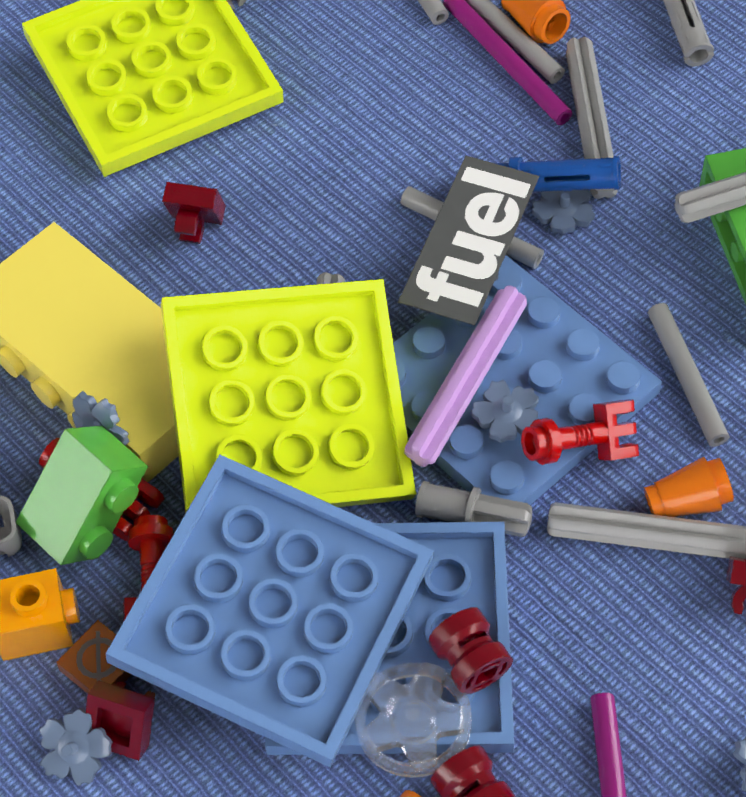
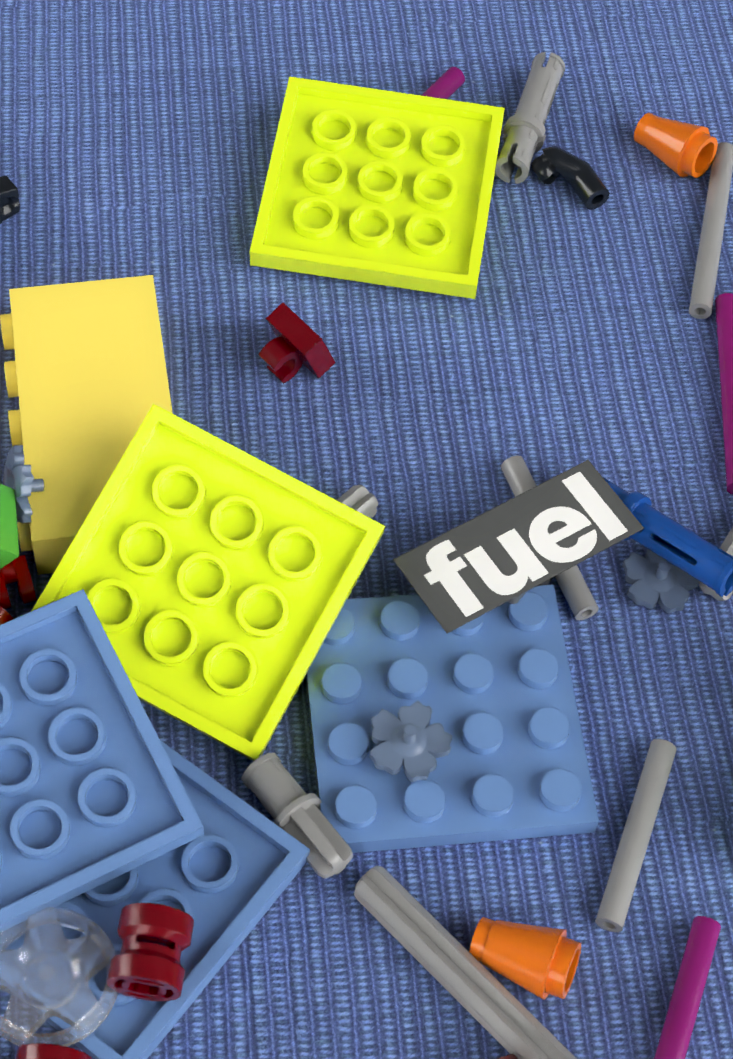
camera: 30 degrees right, 0 degrees up
(465, 377) = (396, 677): lavender axle -> none
(545, 441) = (411, 797): red hinge -> none

